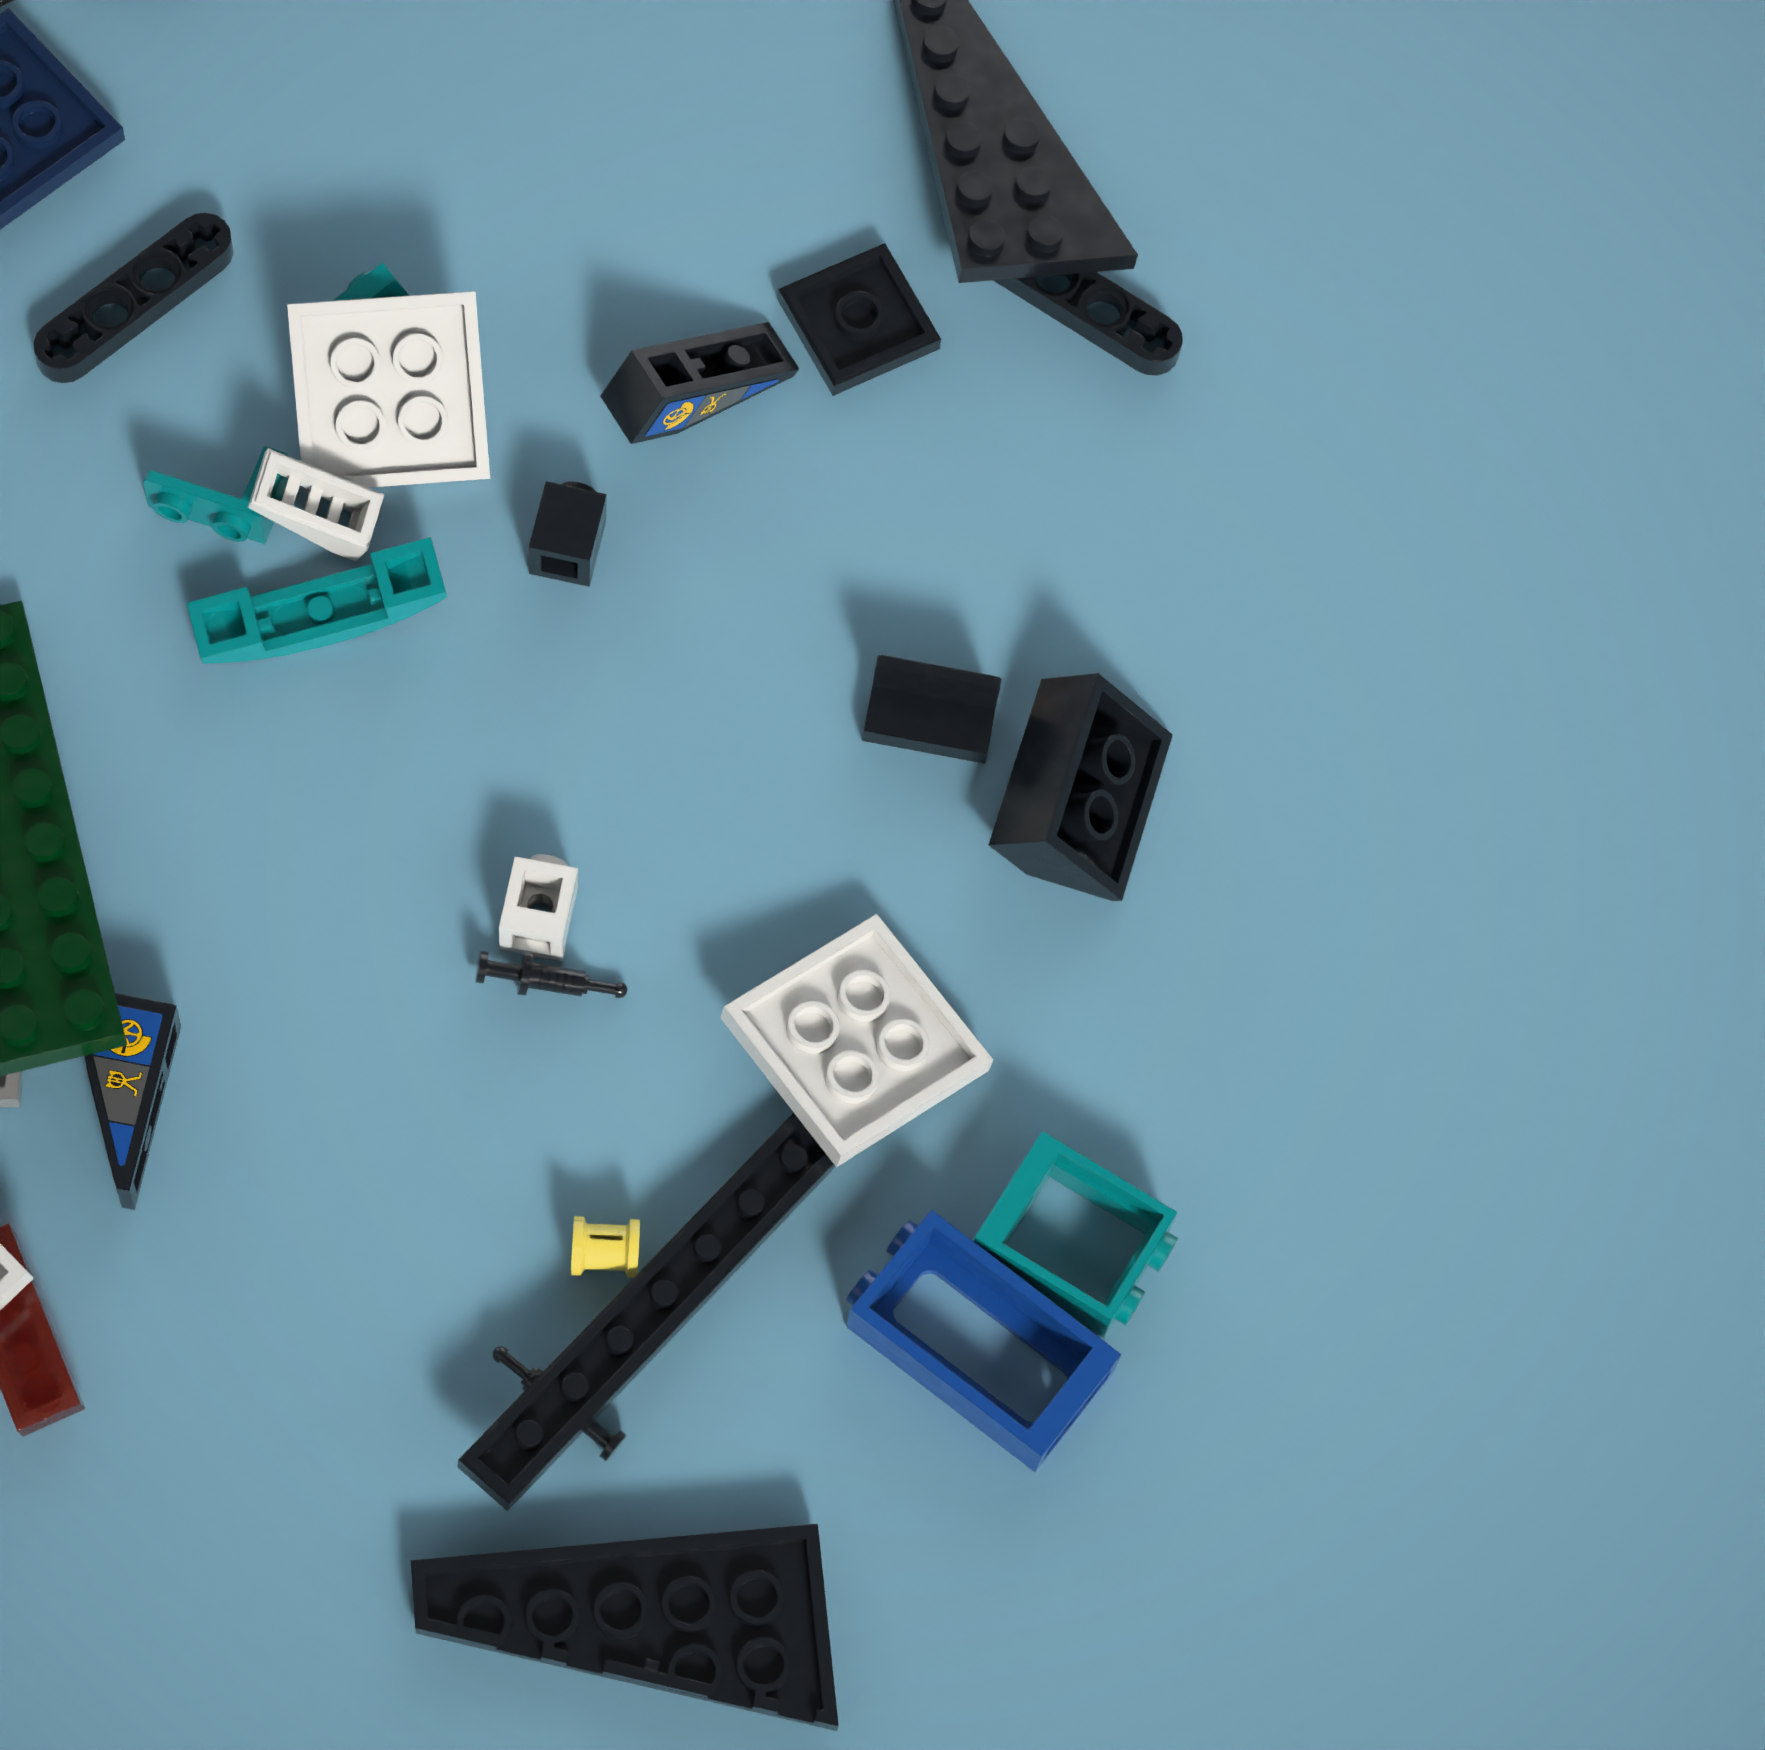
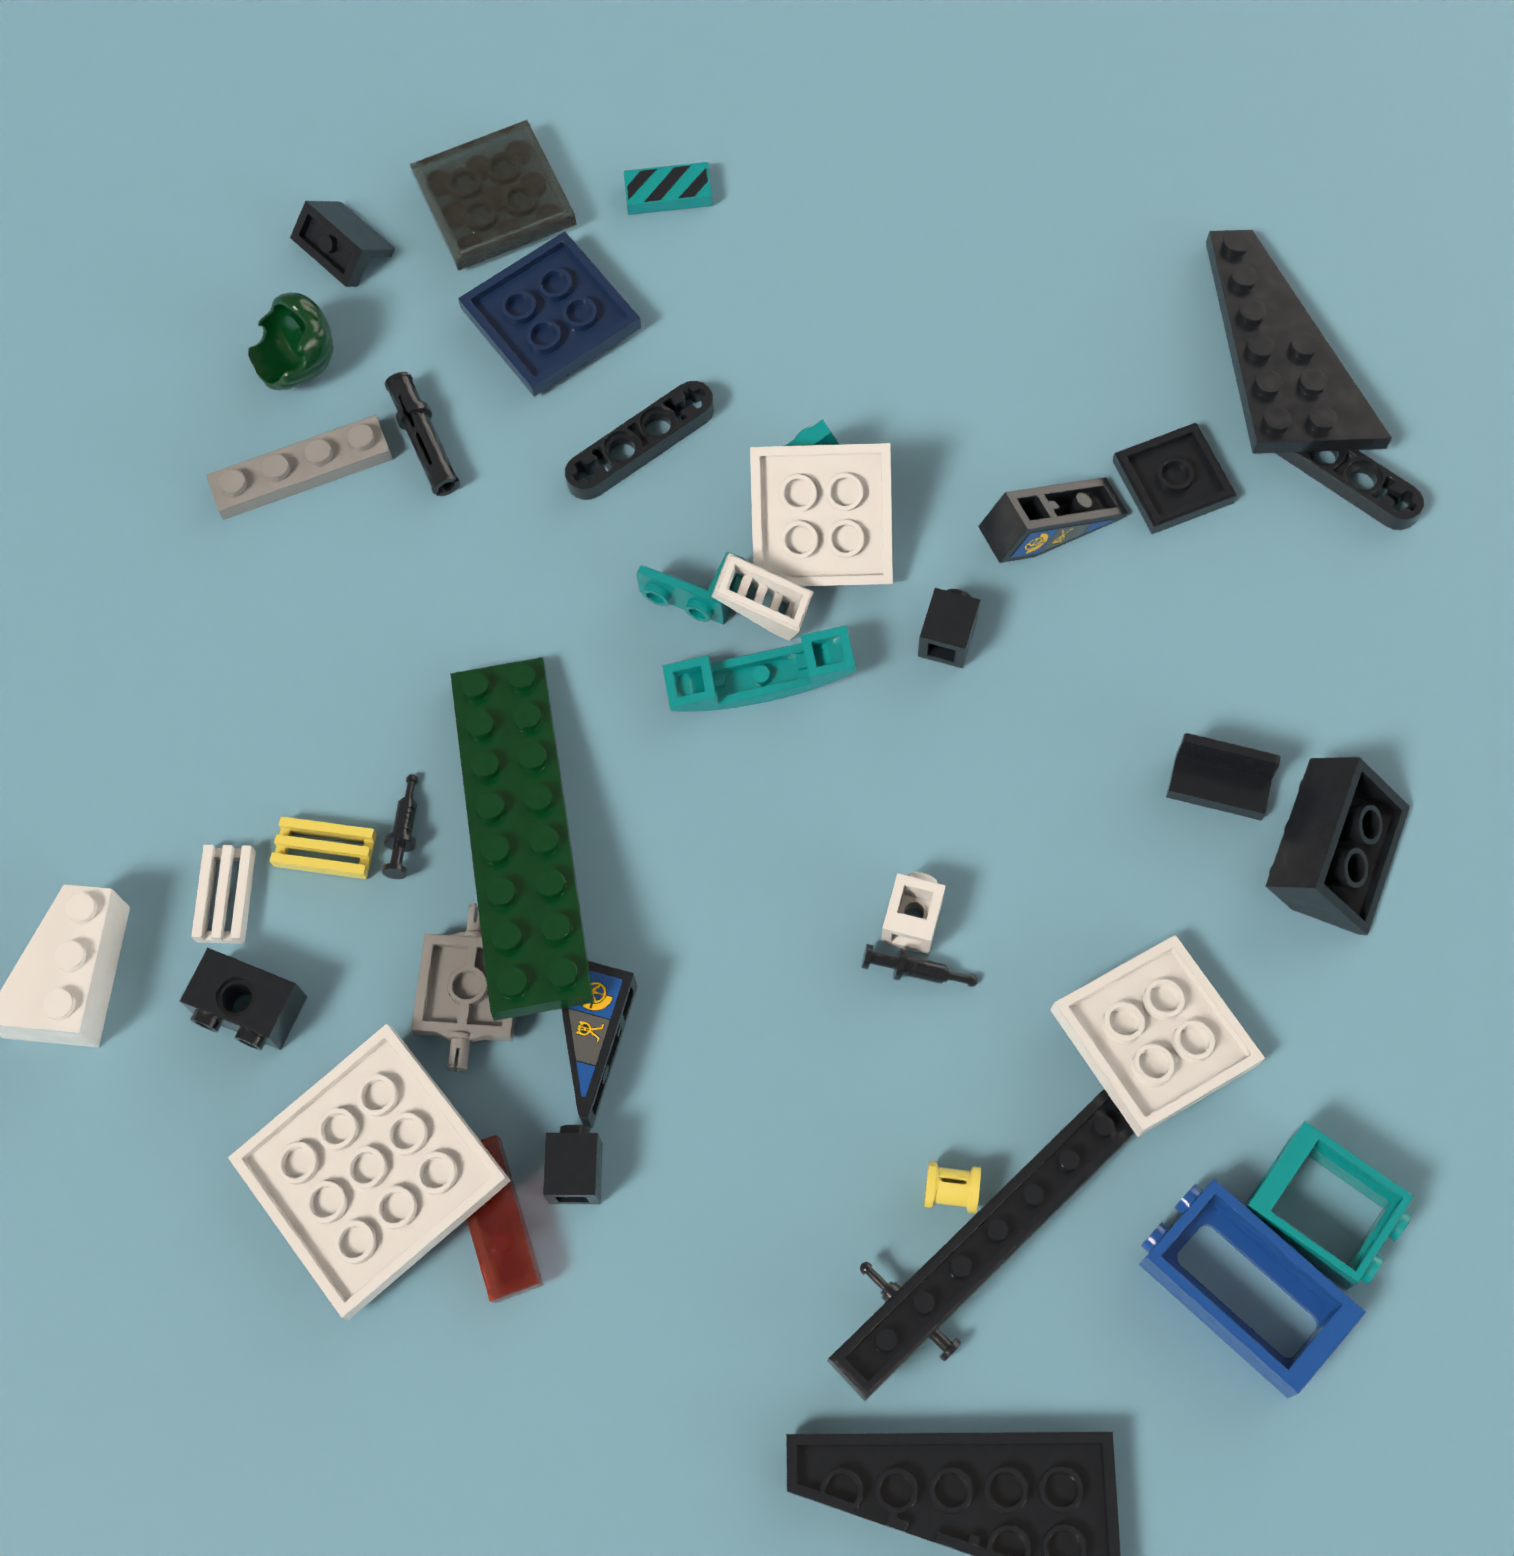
camera: 20 degrees right, 0 degrees up
(113, 1257) = (573, 1166): none -> black brick

